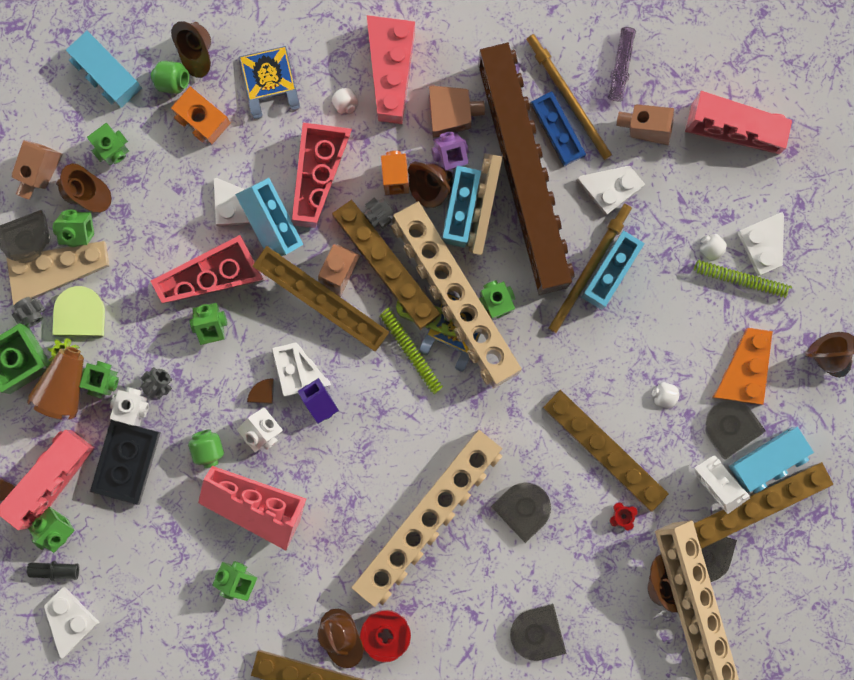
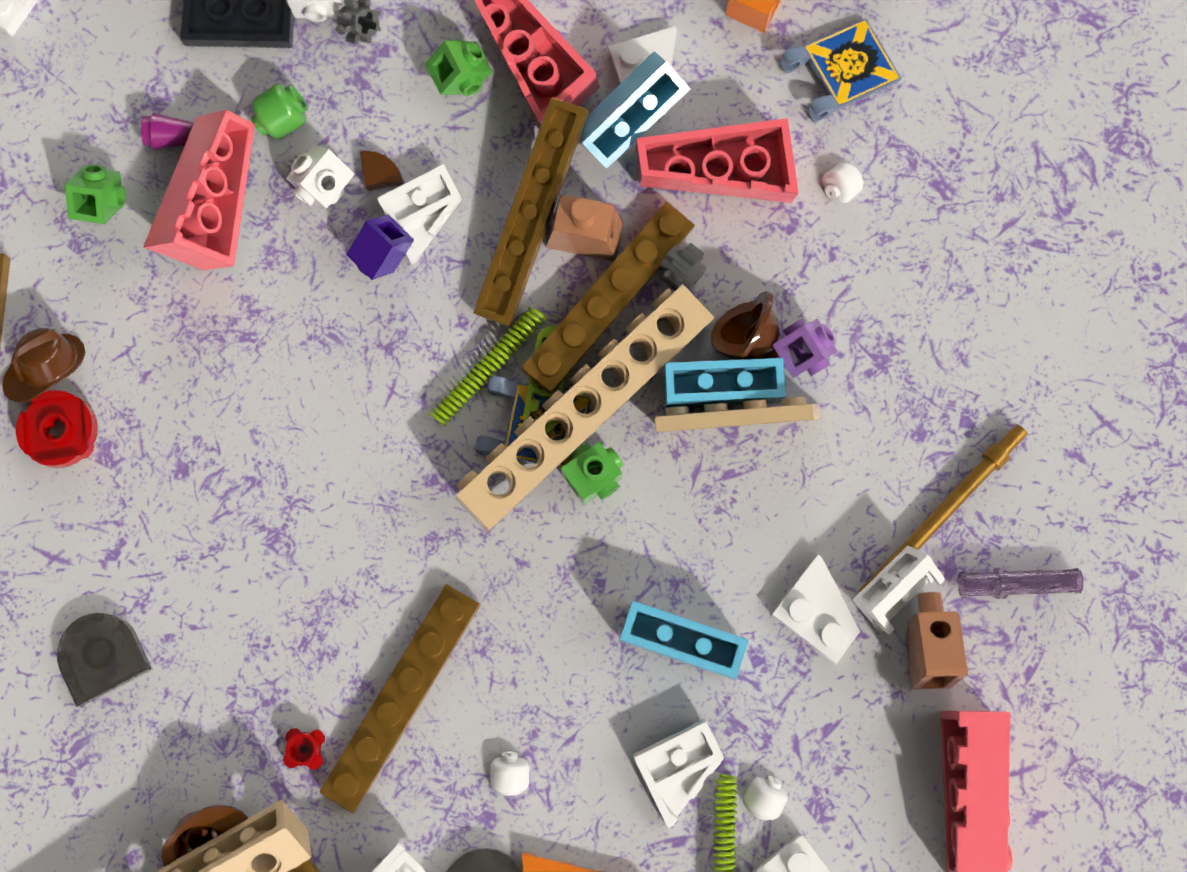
camera: 80 degrees right, 5 degrees down
(200, 525) = (164, 131): none -> magenta cone
(366, 584) = (123, 384): tan brick -> none
(391, 58) = (916, 230): coral wedge -> none
(395, 173) = (747, 271): orange brick -> none
(452, 109) = (871, 337): nougat torso -> none
(524, 169) = (808, 461): reddish brown brick -> none
(524, 509) = (284, 591): clear smoke tile -> none
(557, 129) = (888, 507): blue tile -> none
(608, 137) = (896, 587): none -> white hinge
(614, 227) = (754, 631): pearl gold bar -> none
(684, 292) = (678, 767): none -> white wing

